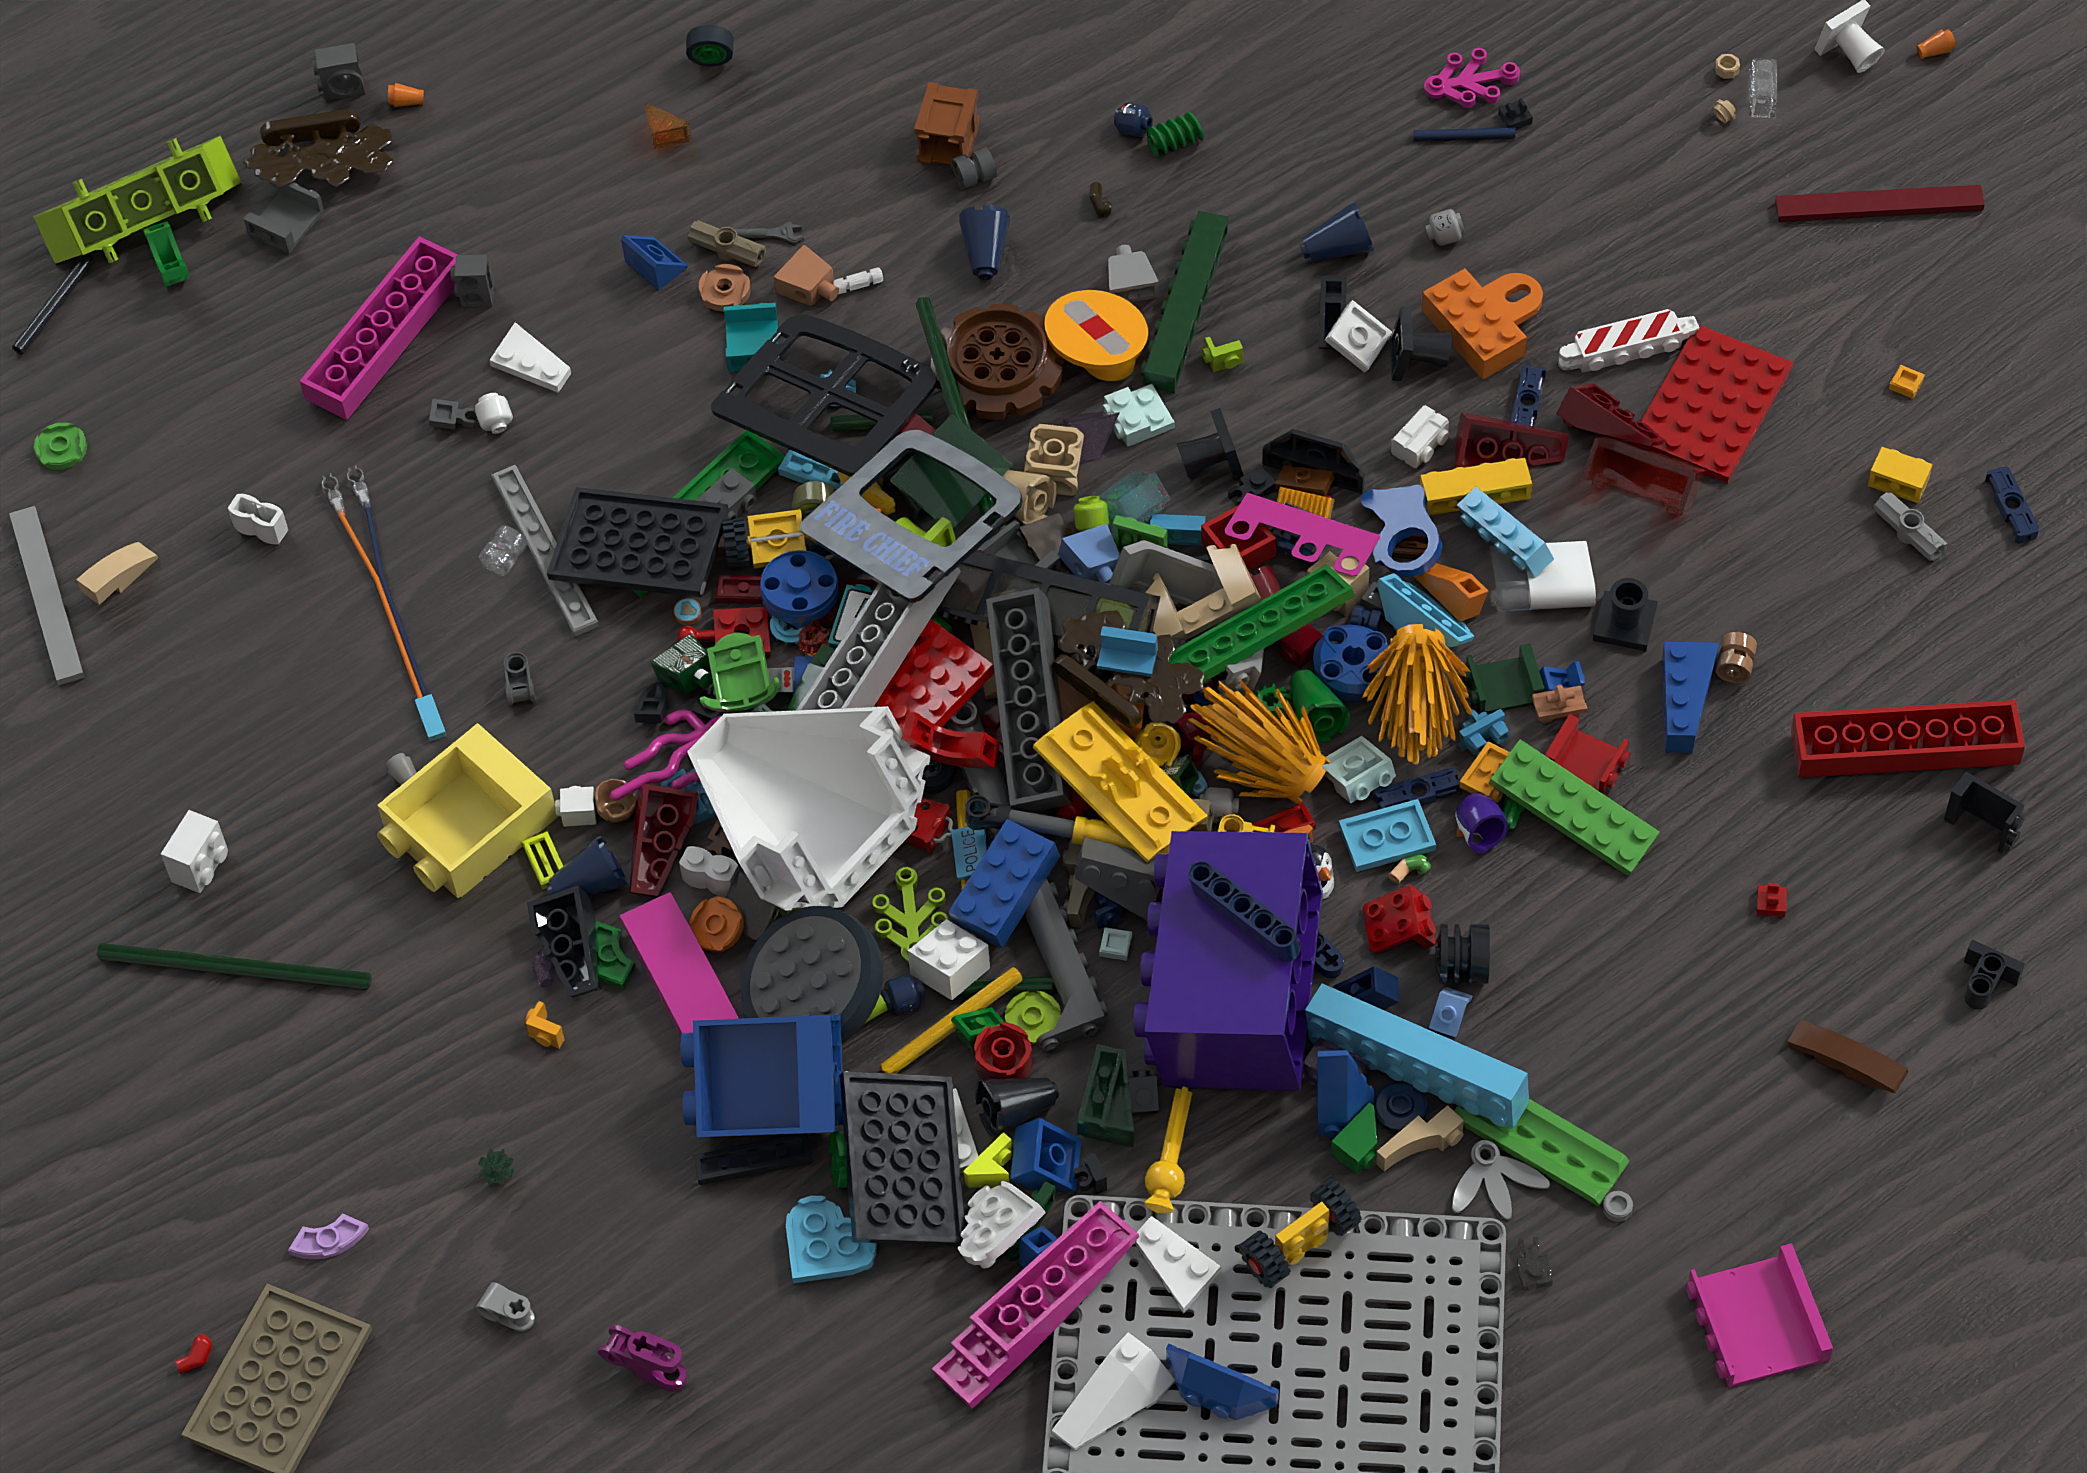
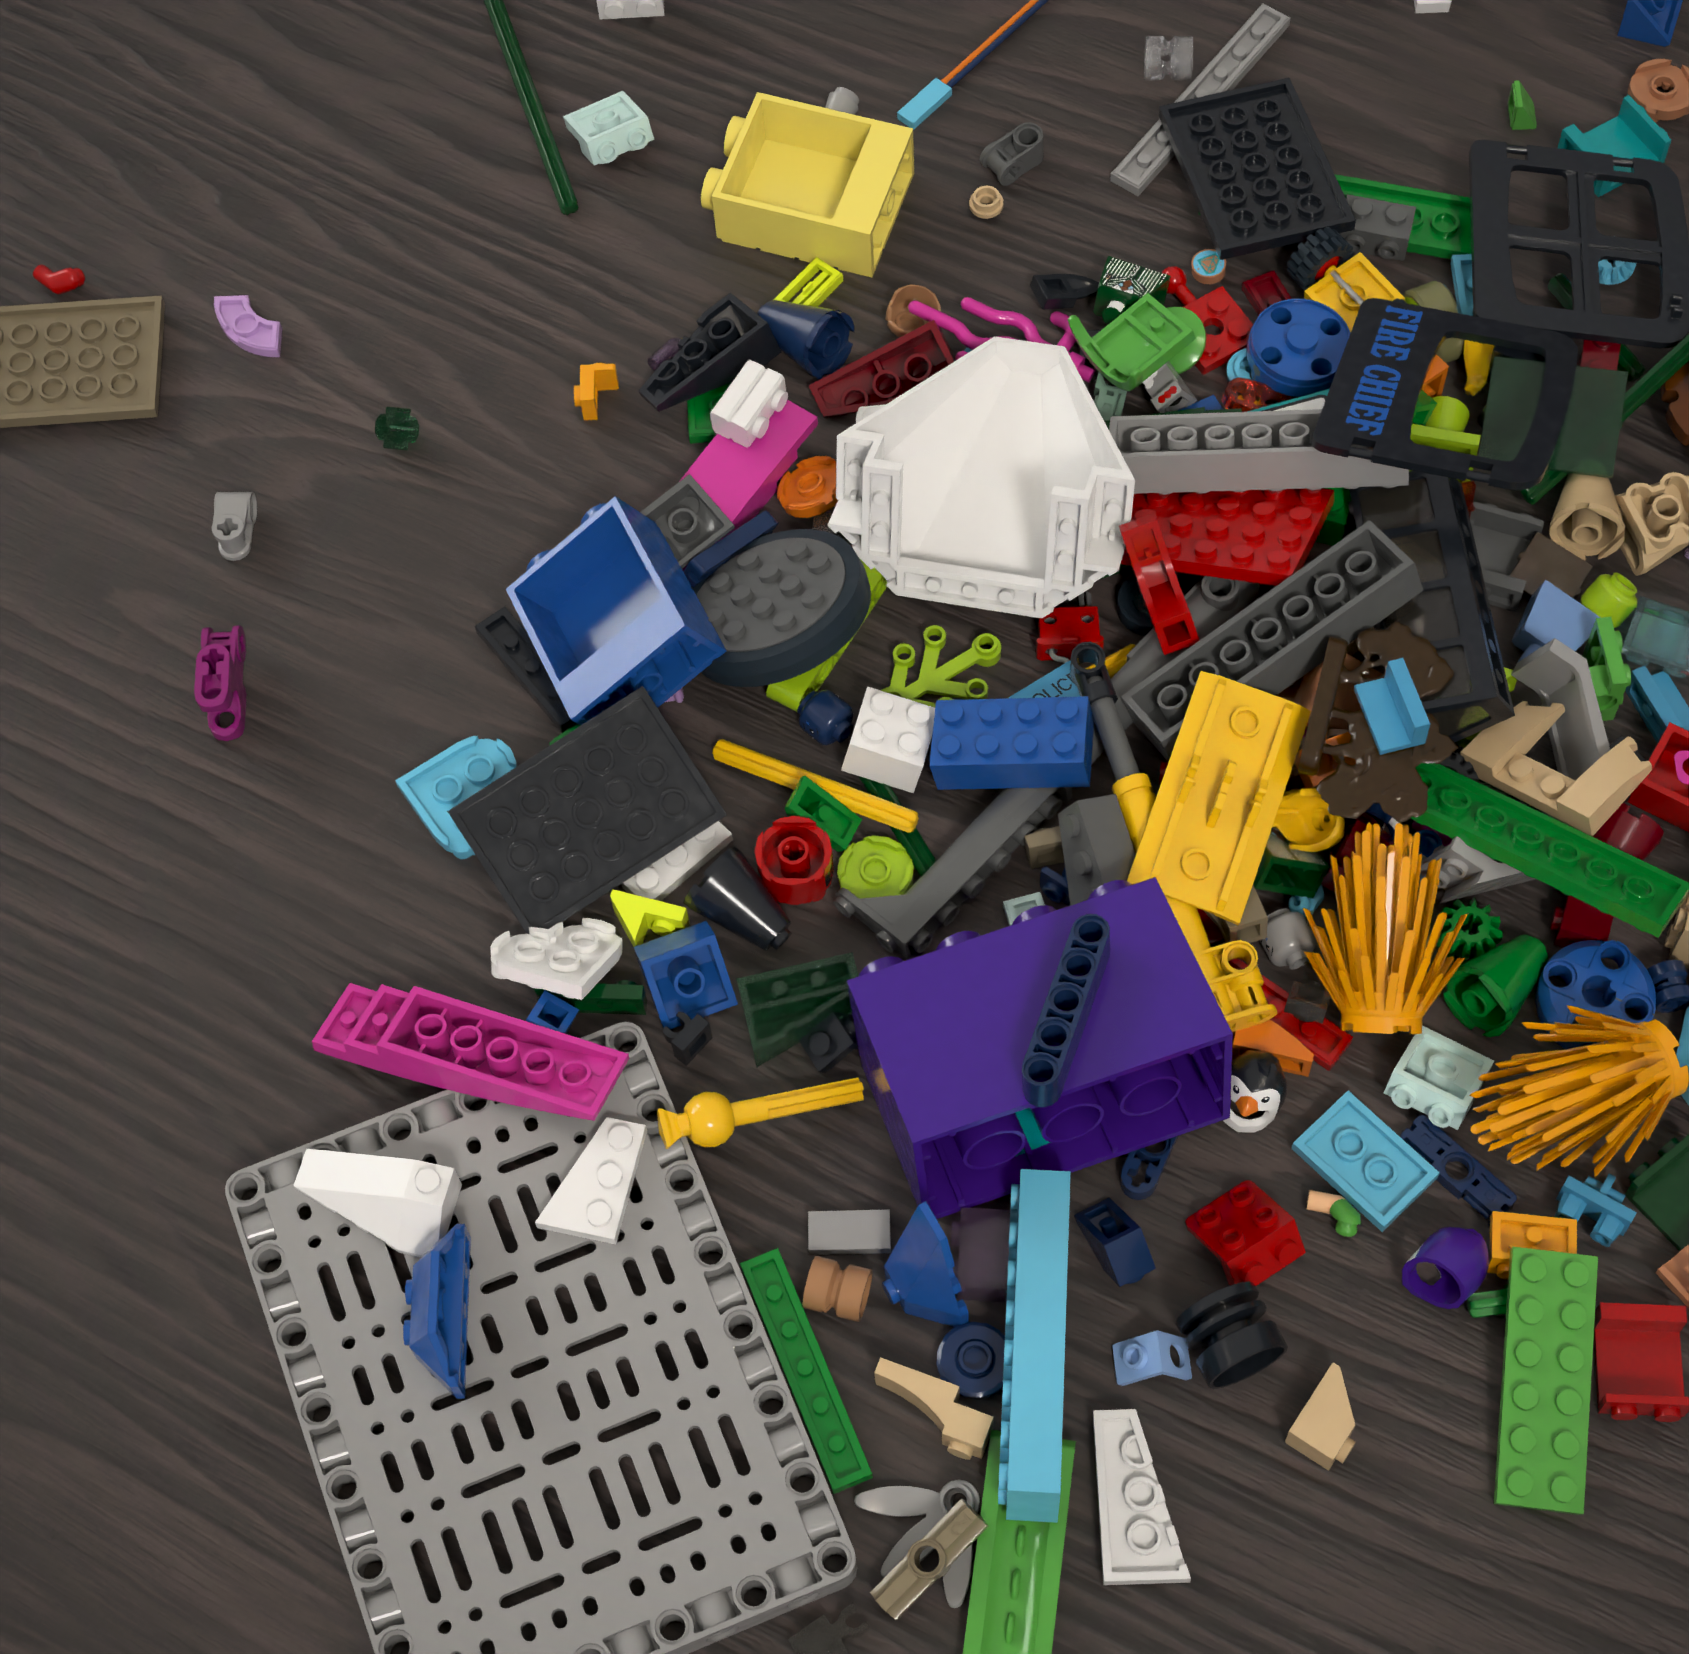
camera: 65 degrees right, 5 degrees up
(317, 923) = (609, 128): none -> light aqua plate
(545, 711) = (989, 196): none -> tan plate
(577, 806) = (883, 278): white brick -> none
(640, 925) = (749, 404): none -> white brick
(683, 374) = (1521, 108): none -> bright green slope
(710, 999) = (688, 519): none -> dark grey slope
(738, 988) = (712, 558): none -> dark blue piece
(1268, 812) = (1308, 1000): none -> clear smoke plate
(1277, 1140) = (849, 1232): none -> light grey tile
(1318, 1156) = (837, 1288): none -> medium nougat wheel
(1330, 1210) = (640, 1287): black plate -> none
(1357, 1141) = (894, 1330): green slope -> none
(1366, 1199) = (806, 1371): none -> green plate
(1522, 1198) = (908, 1579): none -> dark tan piece
(1538, 934) = (1325, 1422): none -> tan slope
(1548, 1065) = (1133, 1518): none -> white wing

